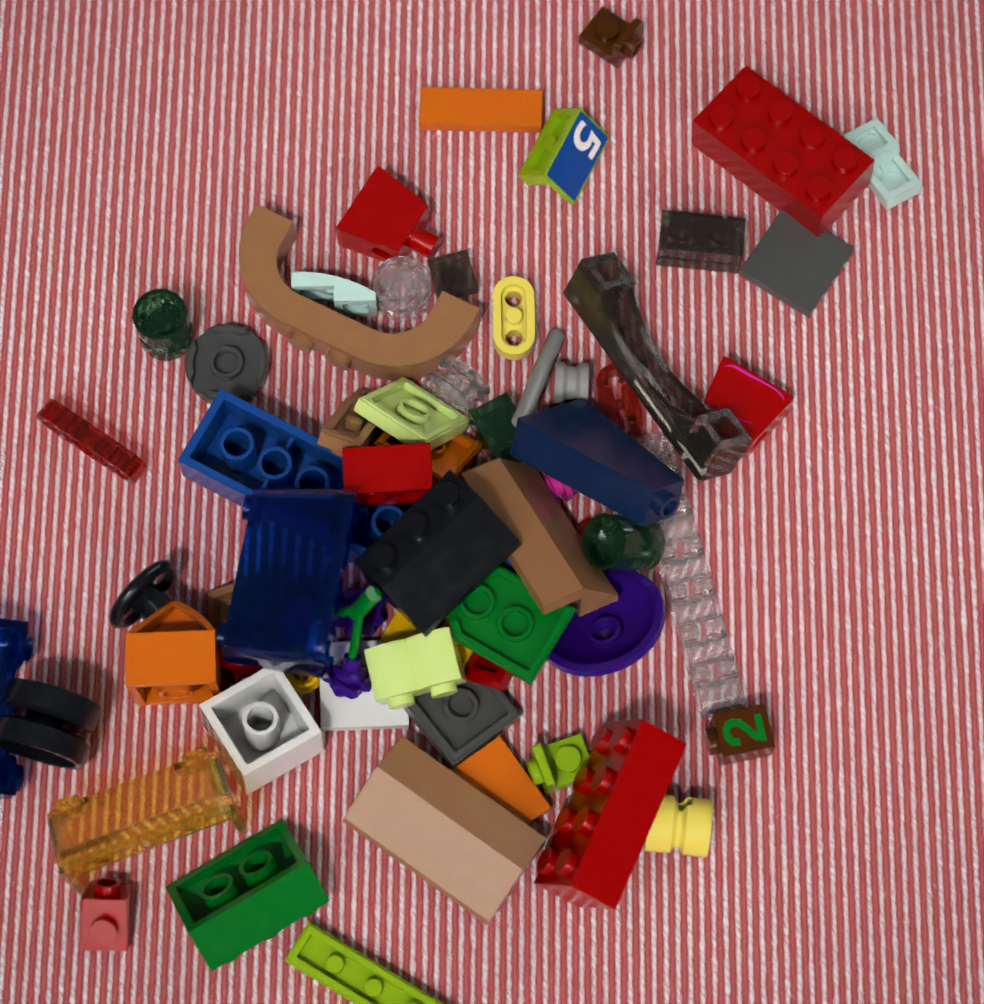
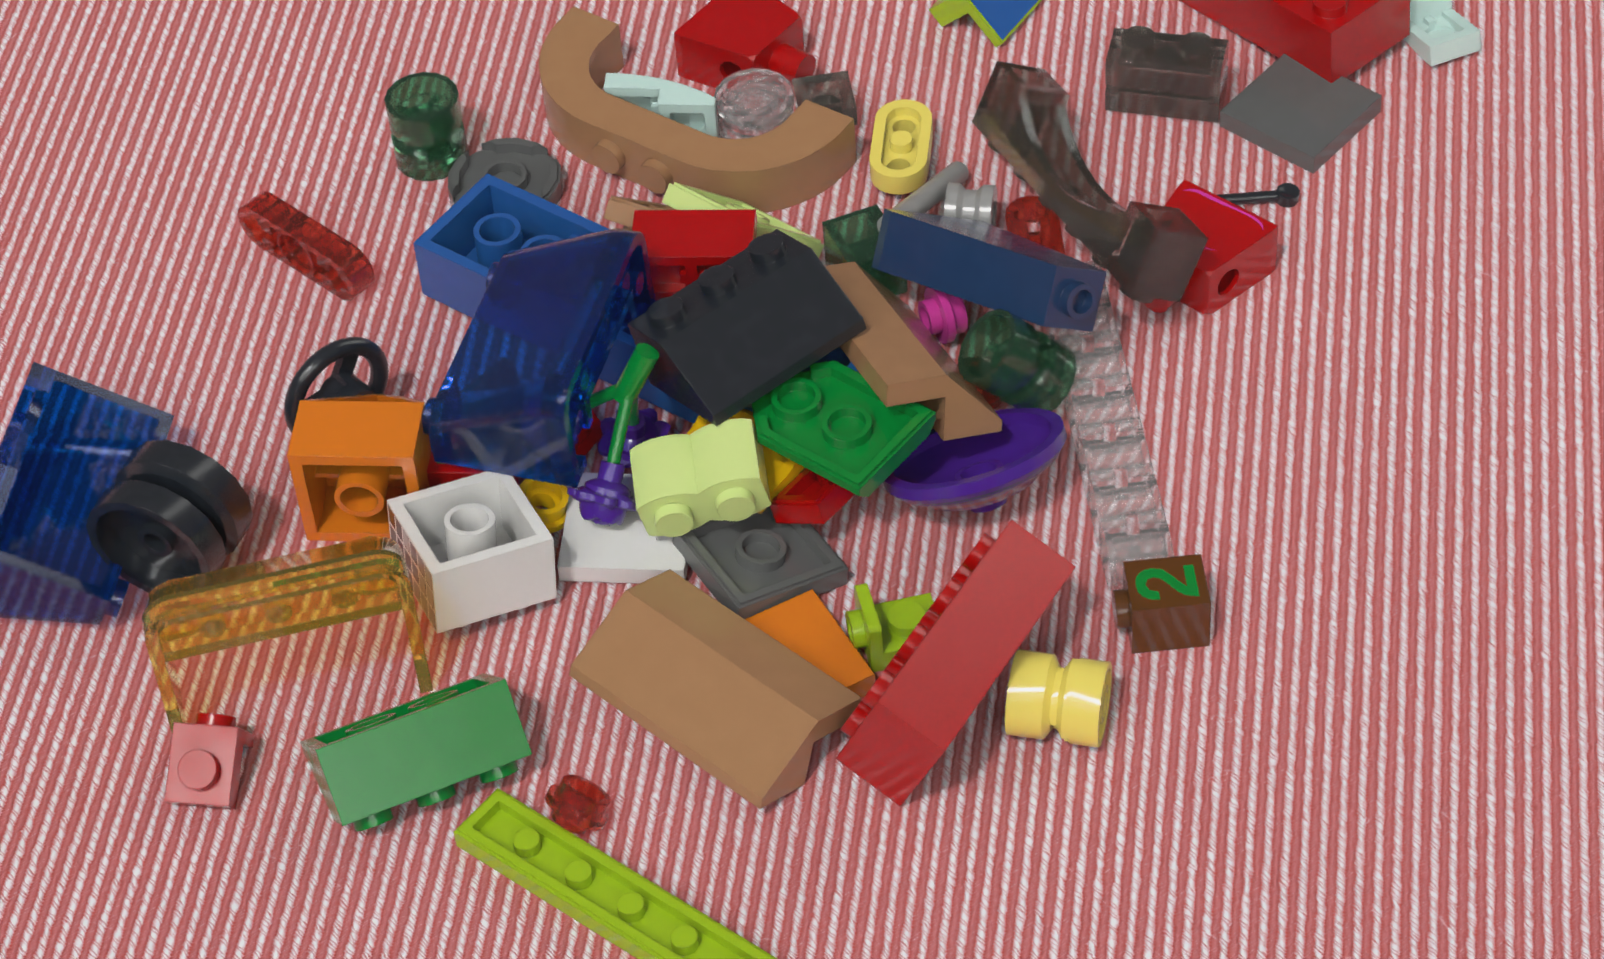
camera: 10 degrees right, 25 degrees down
(365, 933) = (578, 804): none -> clear red plate
(457, 384) = (809, 197): clear wheel -> none
(792, 344) = (1285, 195): none -> black hinge

